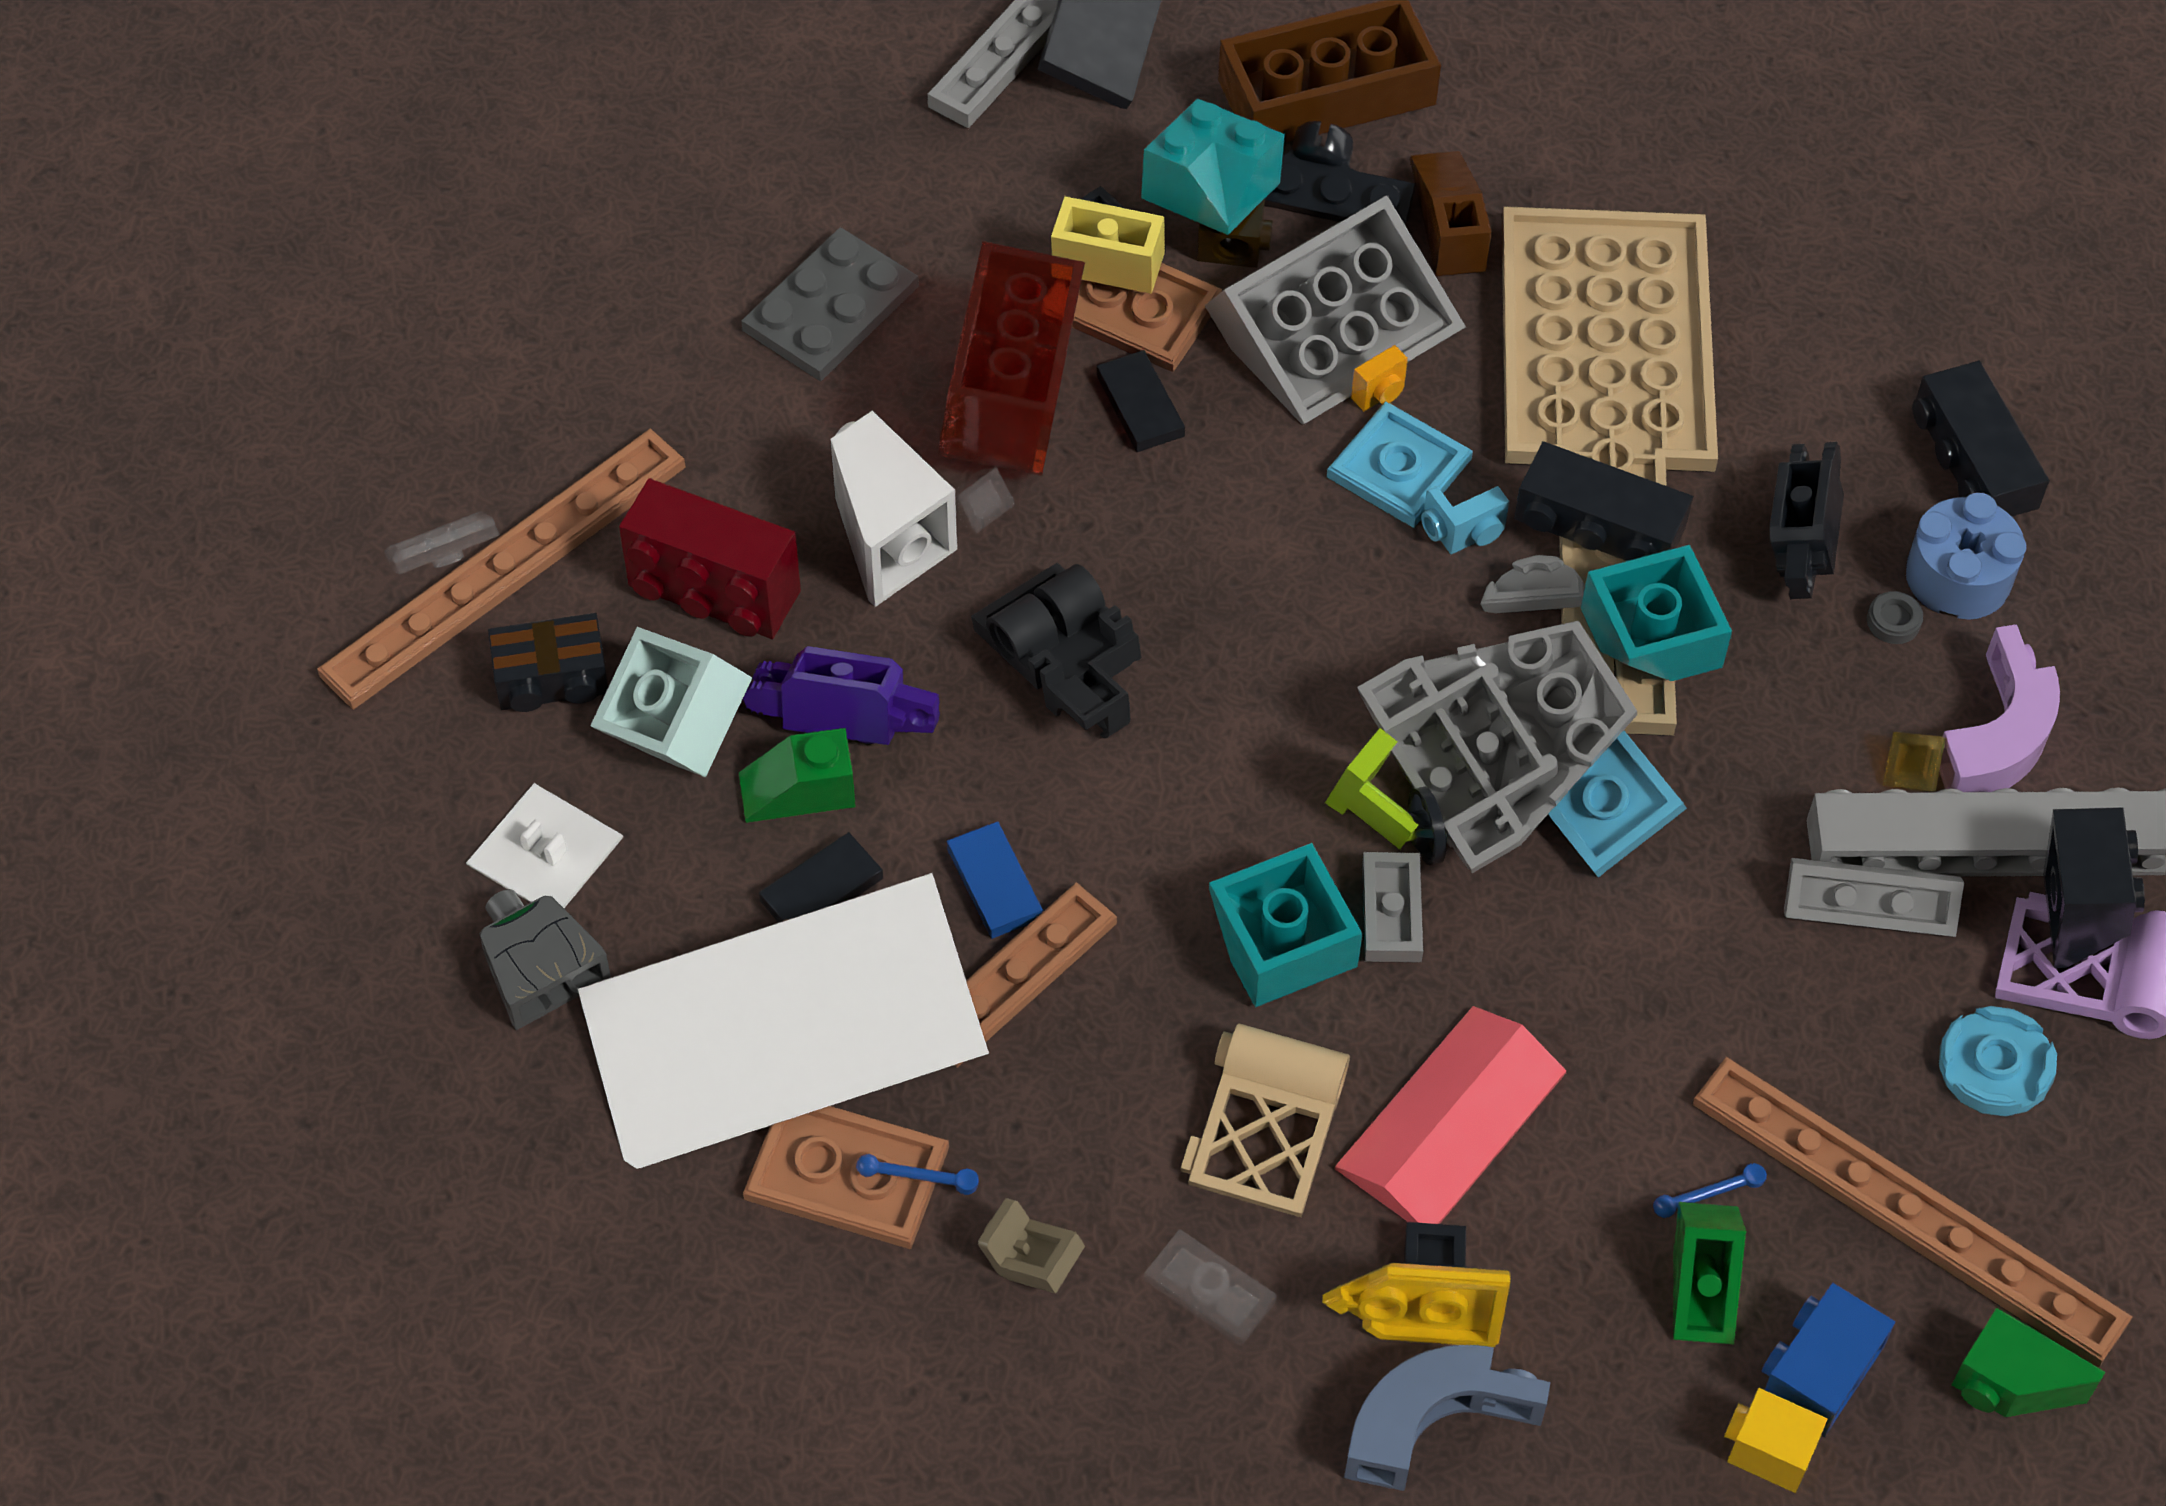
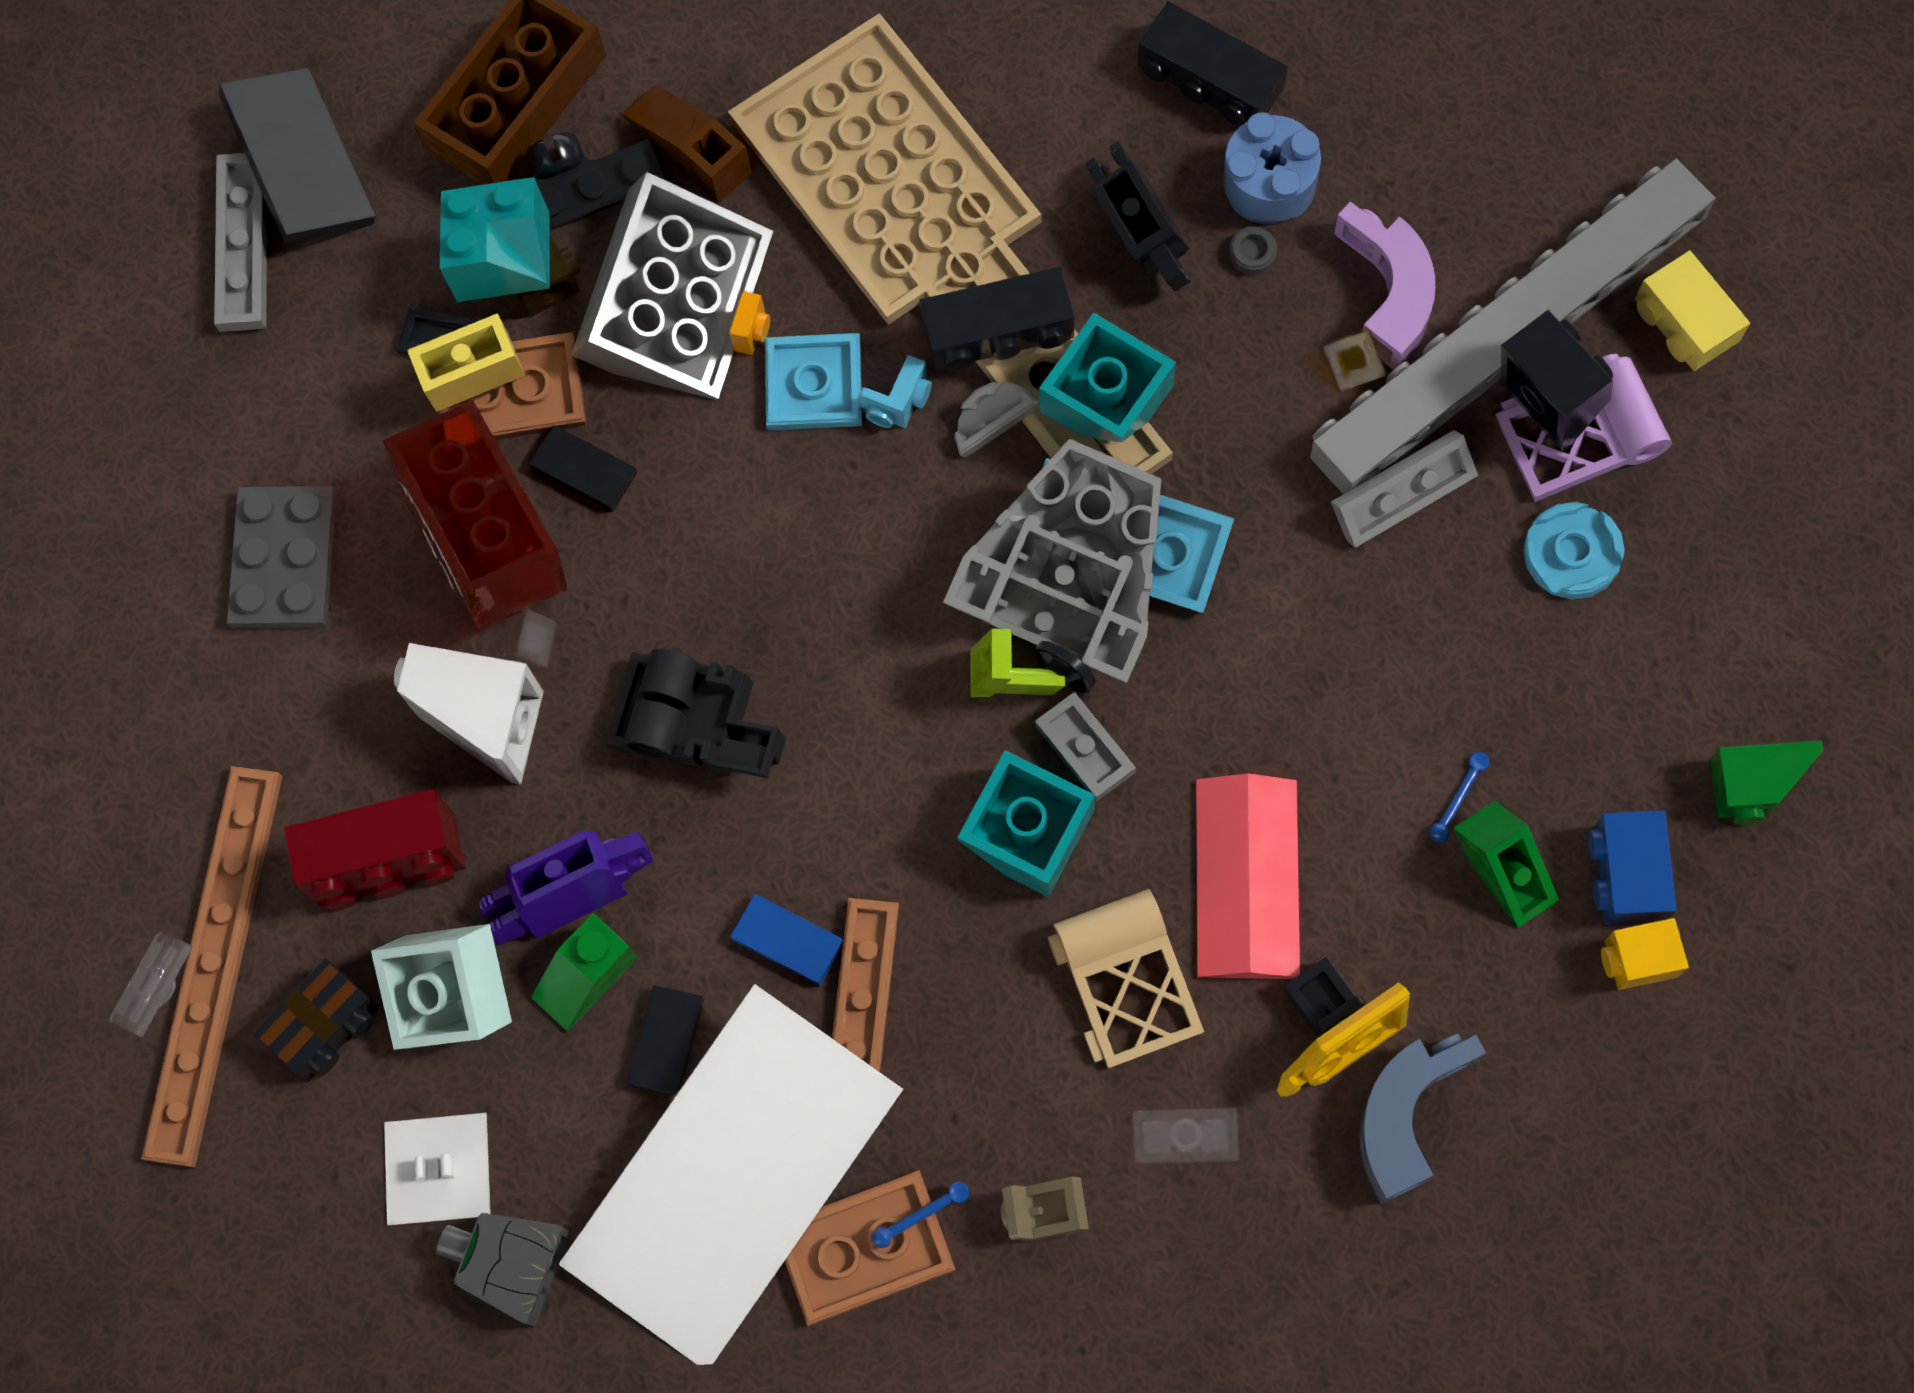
camera: 30 degrees left, 15 degrees up
(1914, 1213) = (1600, 709): nougat tile -> none

